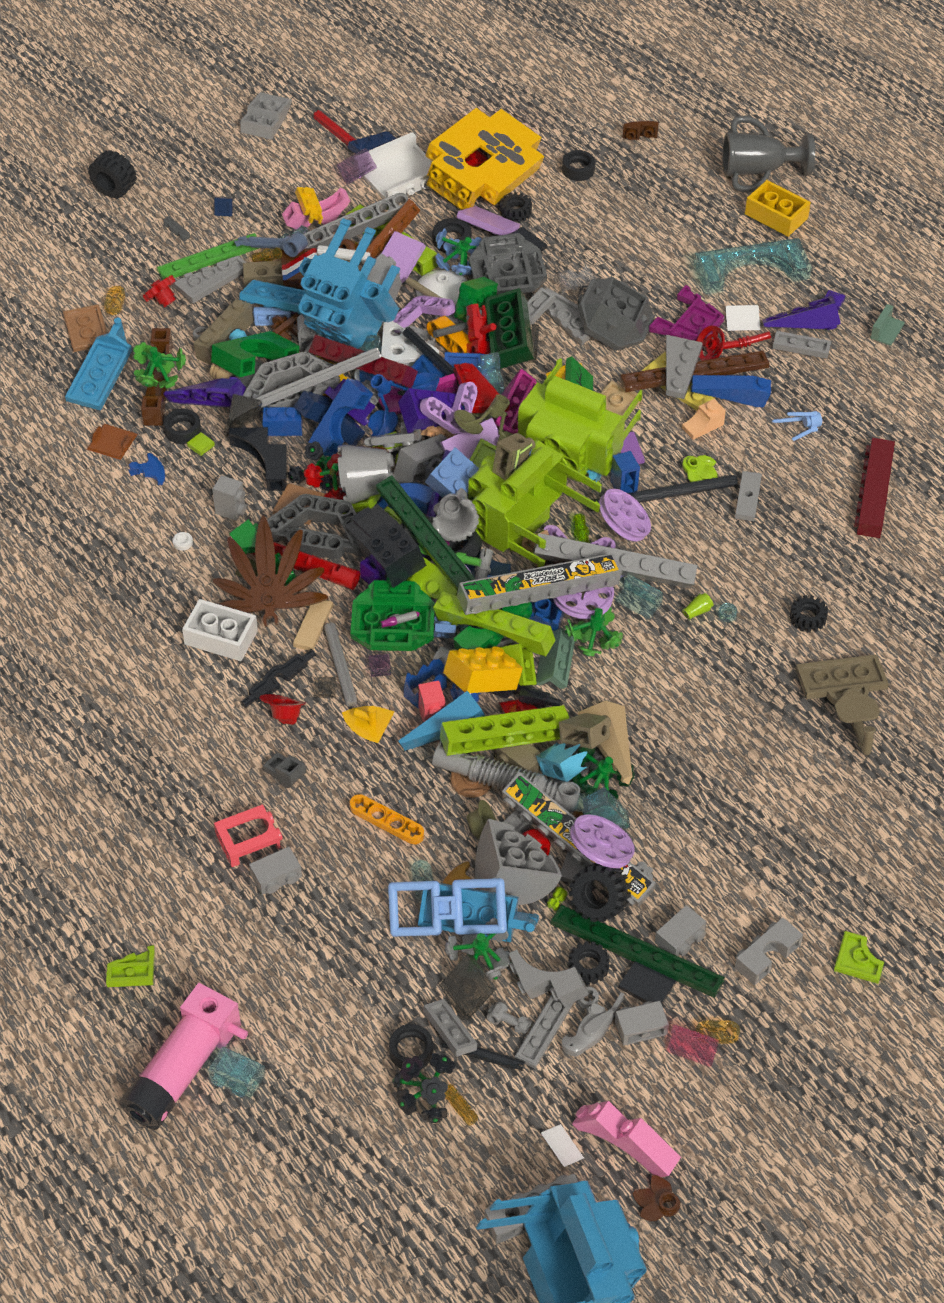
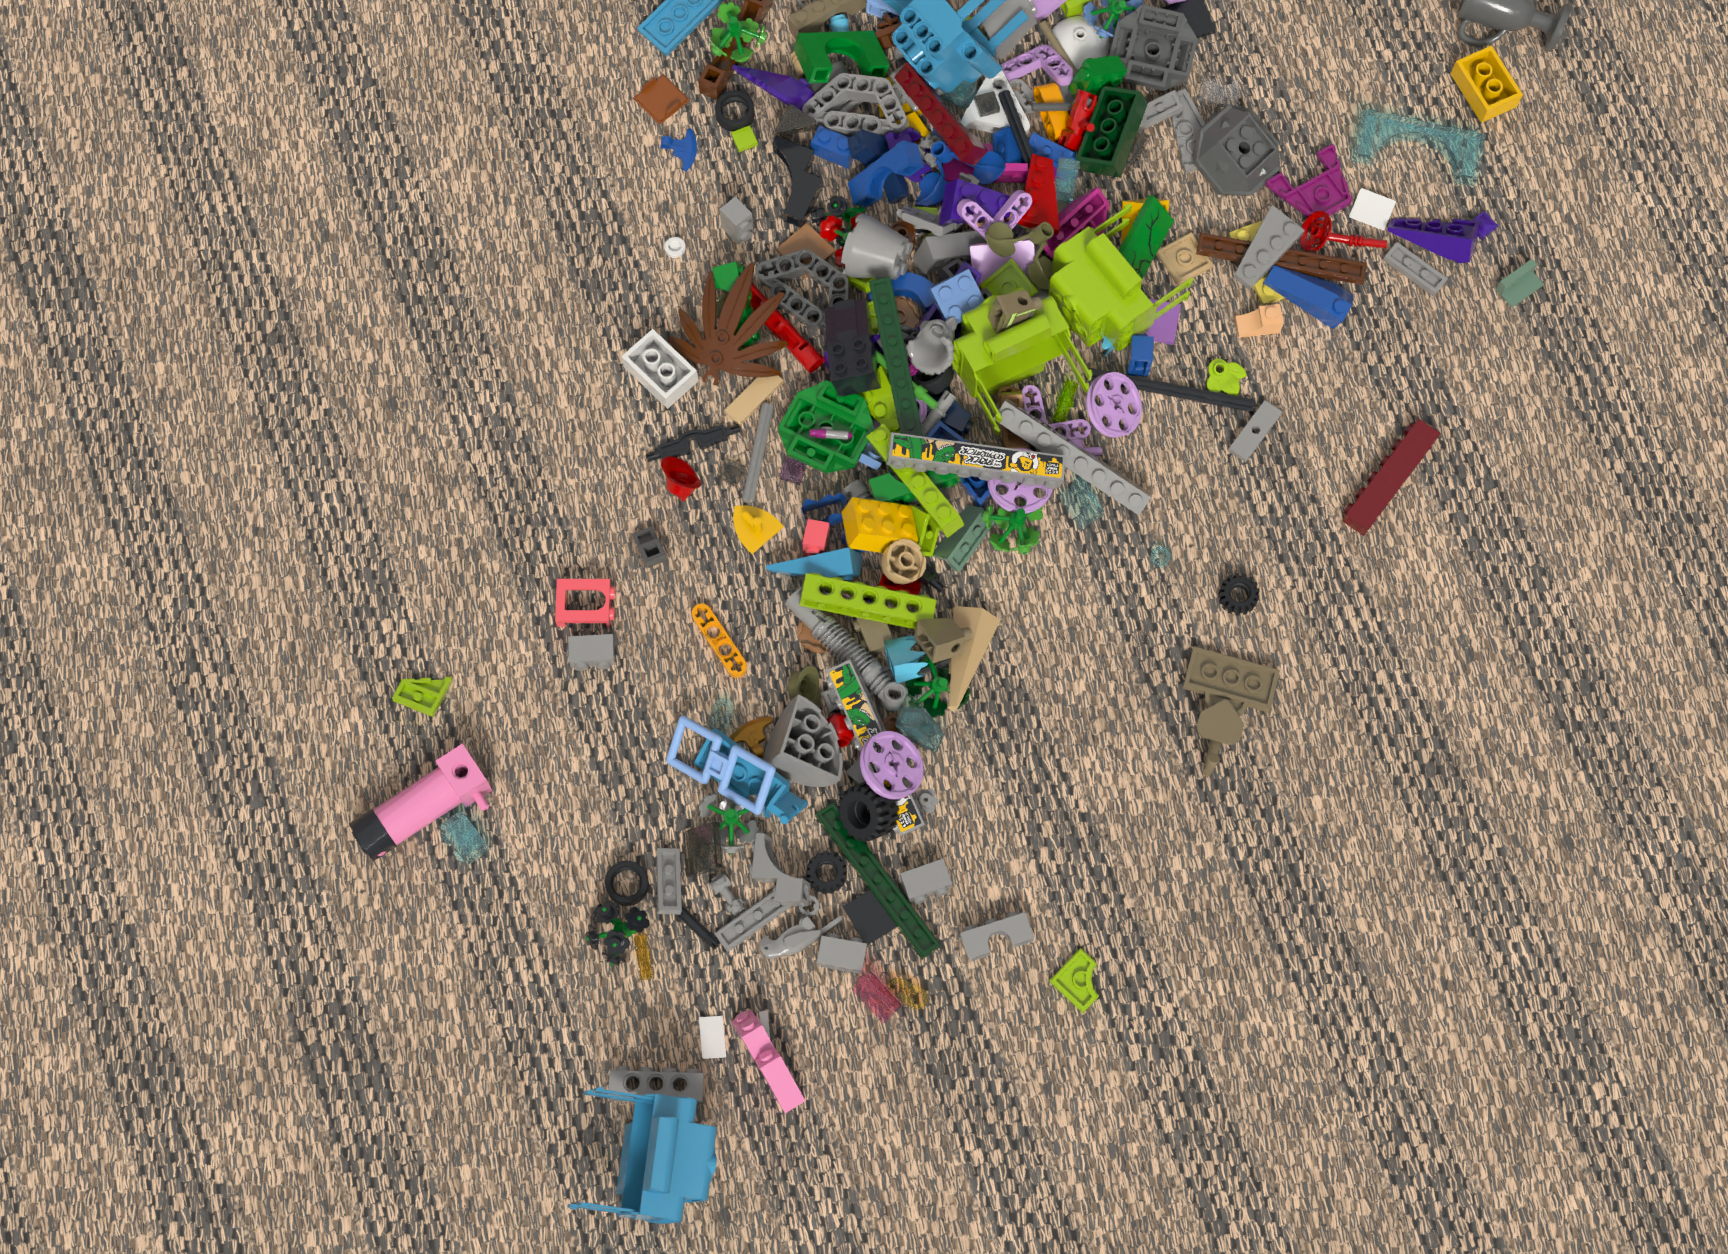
camera: 25 degrees right, 20 degrees up
(319, 377) = (884, 118): light grey axle -> none
(395, 346) = (987, 104): none -> clear smoke tile
(518, 689) = (903, 562): none -> tan cylinder
(558, 896) = (836, 791): lime piece -> none
(653, 1199) = (765, 1124): reddish brown plate -> none
(700, 604) = (1134, 538): lime cone -> none
(810, 419) = (1371, 367): light blue plant -> none

